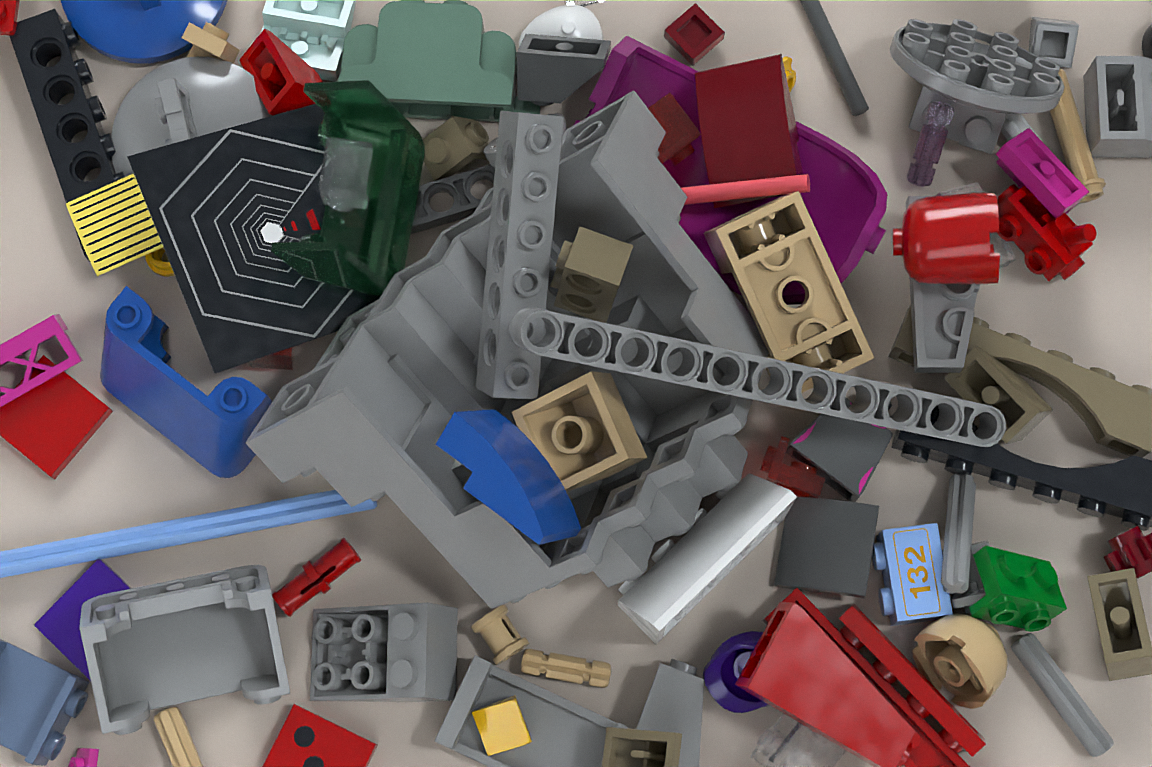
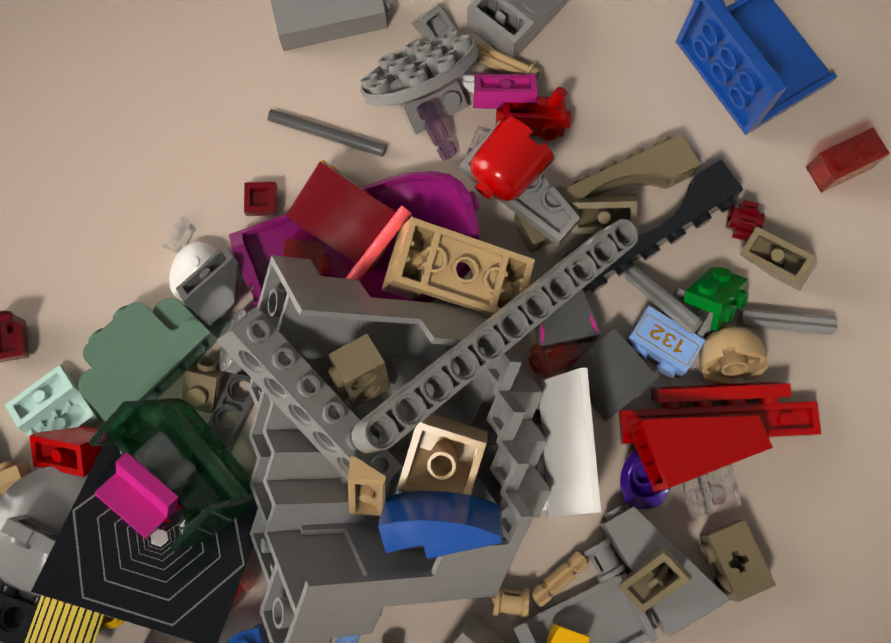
camera: 55 degrees left, 0 degrees up
(293, 178) = (138, 496): none -> dark pink panel
(482, 377) = (365, 488): none -> tan slope
(624, 698) = (604, 560): none -> light grey bush

